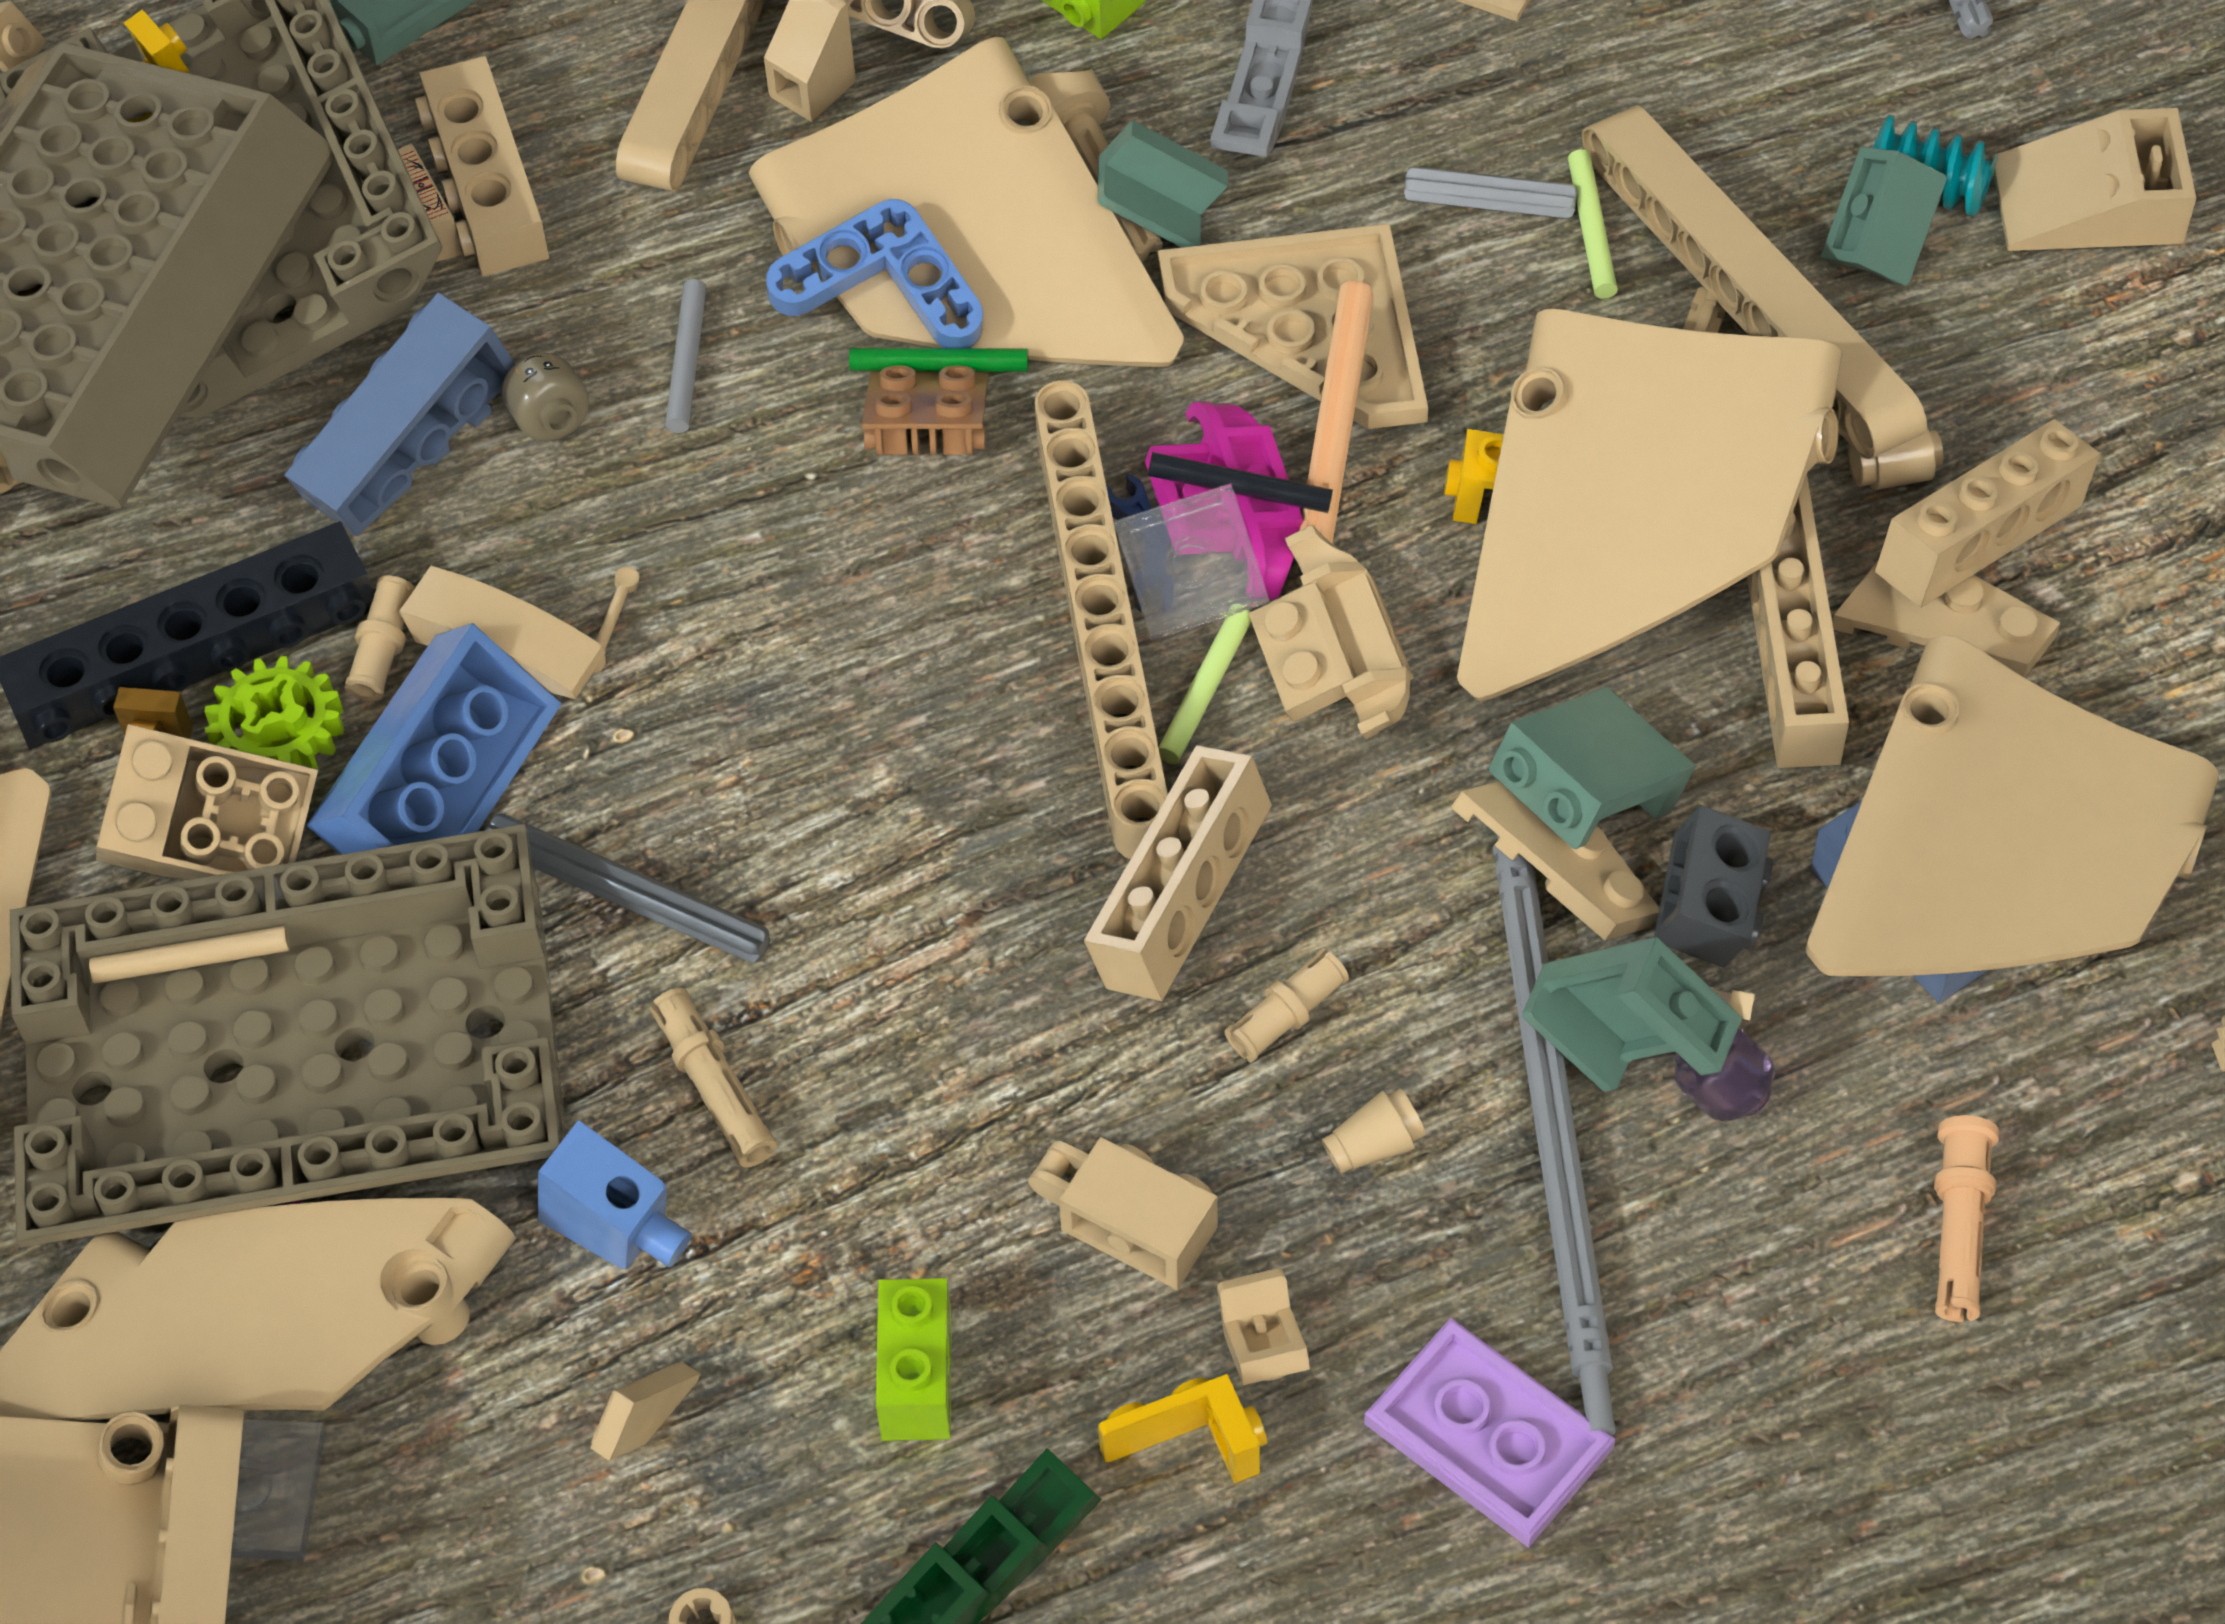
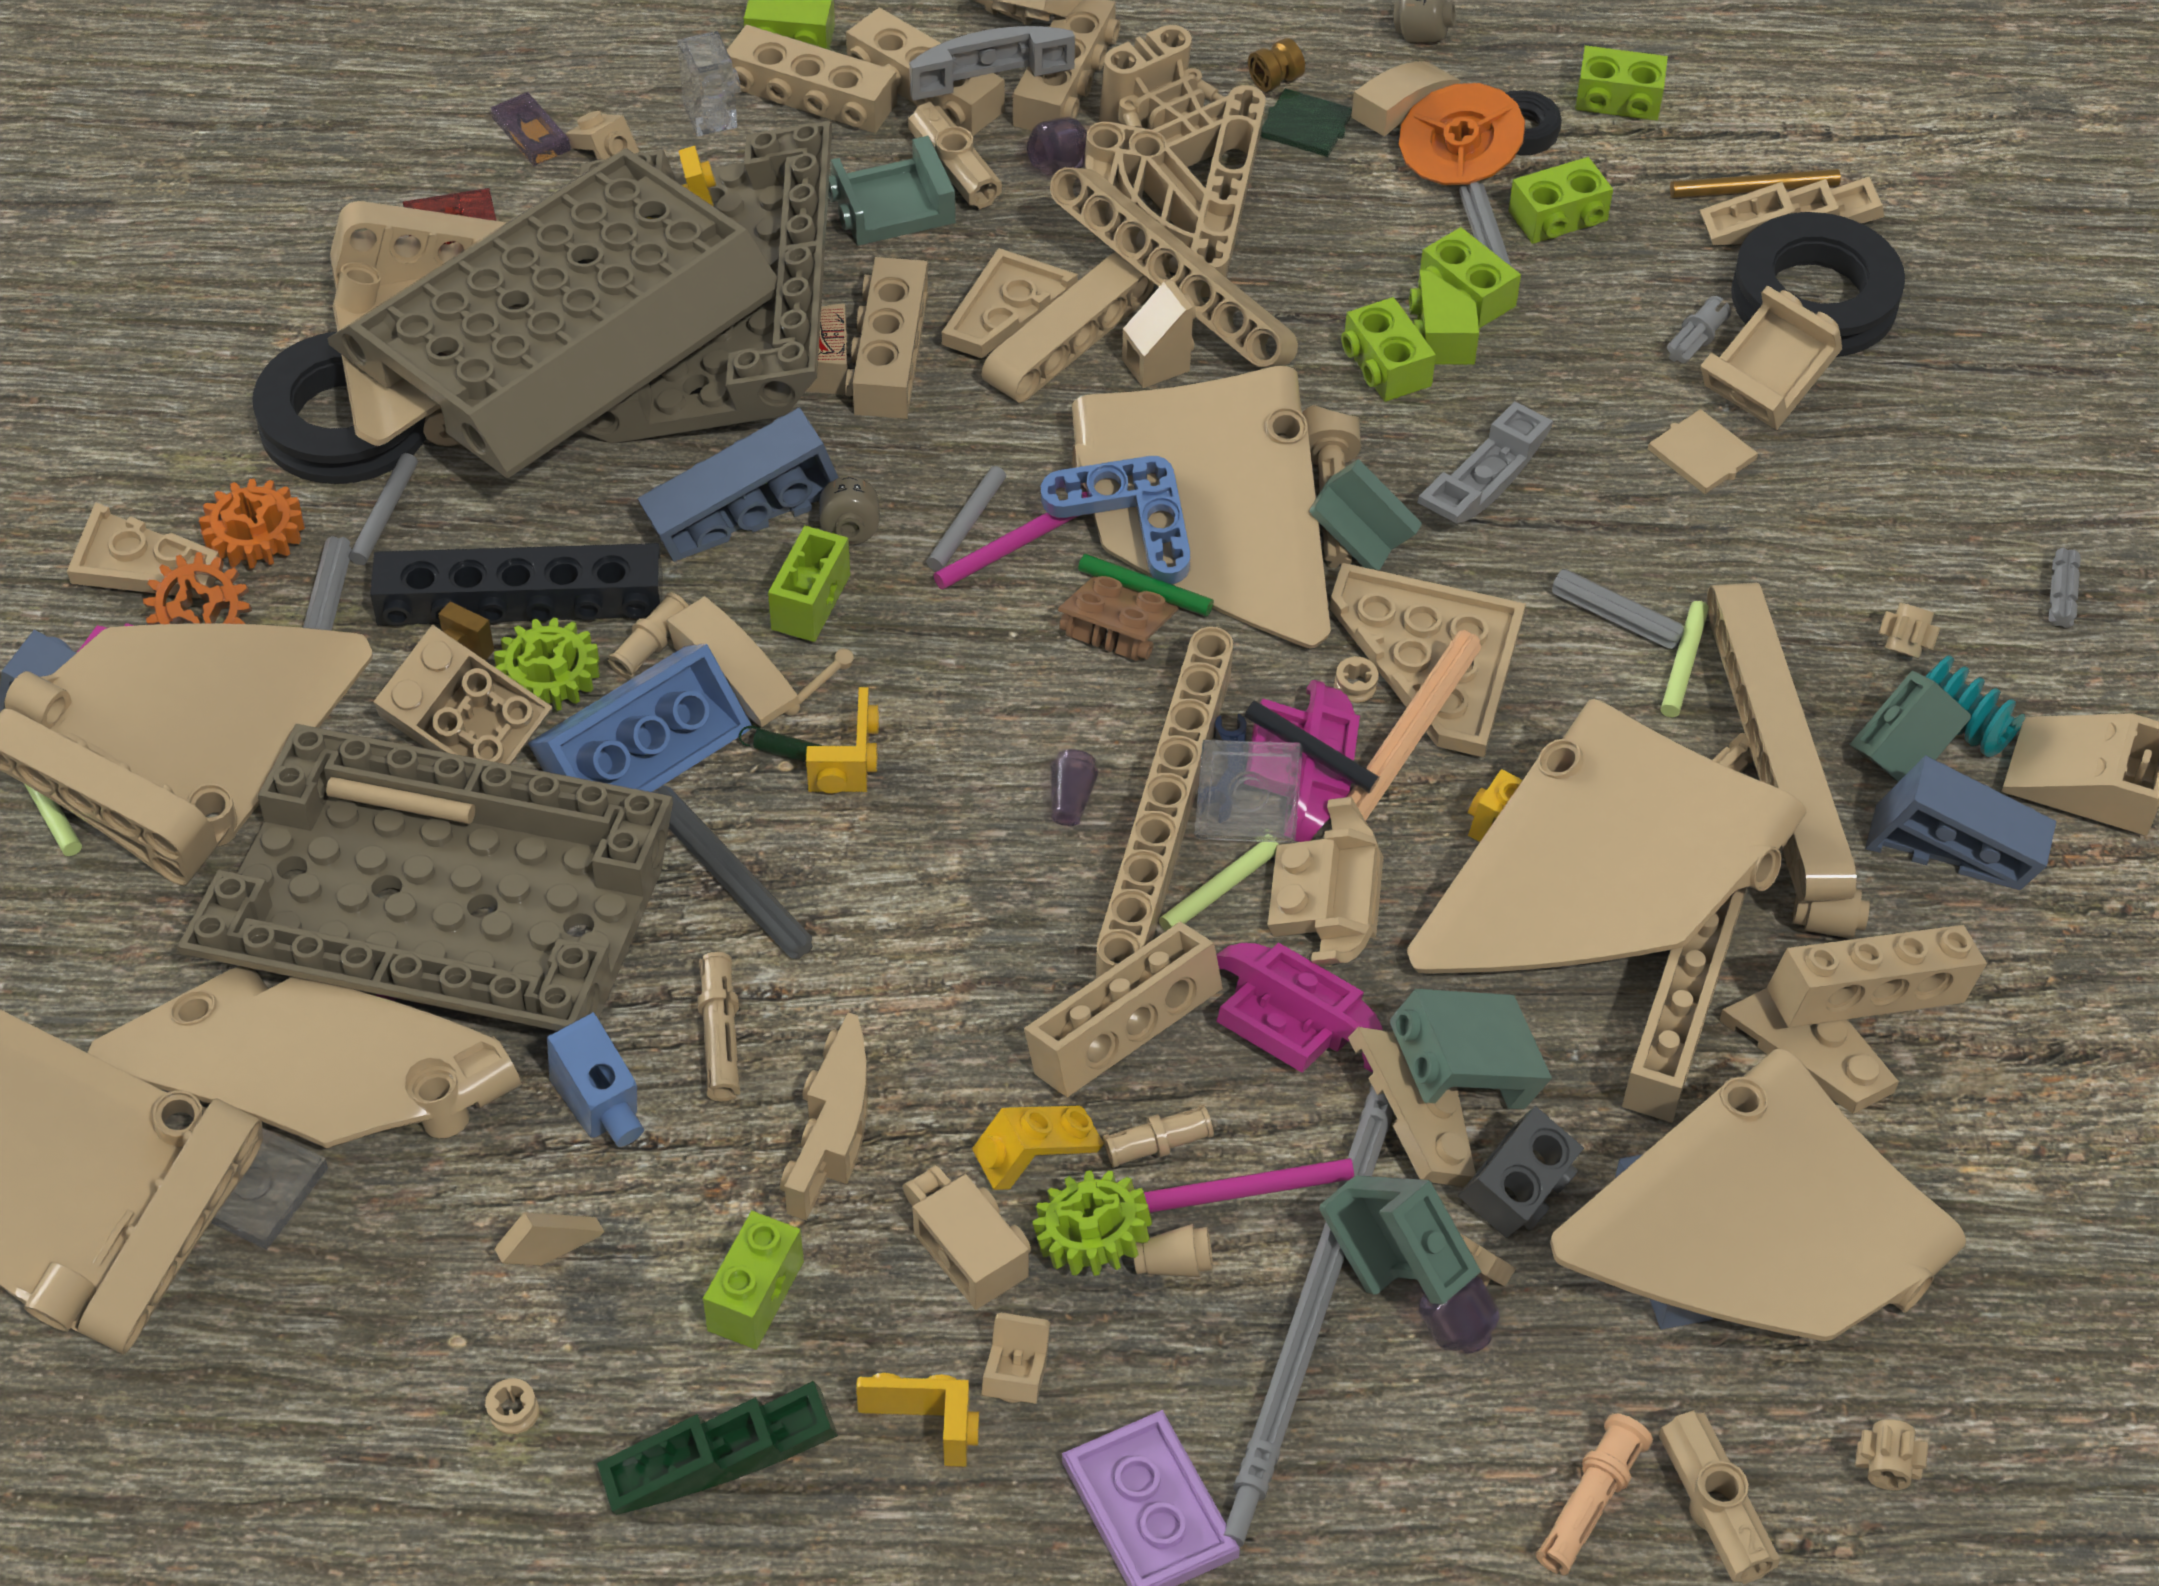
camera: 20 degrees right, 5 degrees down
(547, 503) = (809, 583): none -> lime brick
(597, 72) = (1003, 301): none -> tan wing
(630, 709) = (779, 744): none -> dark green piece
(701, 711) = (846, 767): none -> yellow bracket
(742, 379) = (998, 548): none -> dark pink bar
(907, 1126) = (836, 1119): none -> tan slope
(978, 632) = (1071, 785): none -> clear purple cone
(1140, 1065) = (1024, 1132): none -> yellow bracket
(1242, 368) = (1353, 668): none -> tan bush
(1267, 1135) = (1092, 1223): none -> lime gear
(1361, 793) = (1290, 1004): none -> dark pink plate
(1417, 1023) = (1250, 1185): none -> dark pink bar
(1825, 101) = (1909, 630): none -> tan gear
(1990, 303) = (1962, 823): none -> sand blue wedge
(2126, 1191) = (1730, 1524): none -> tan piece

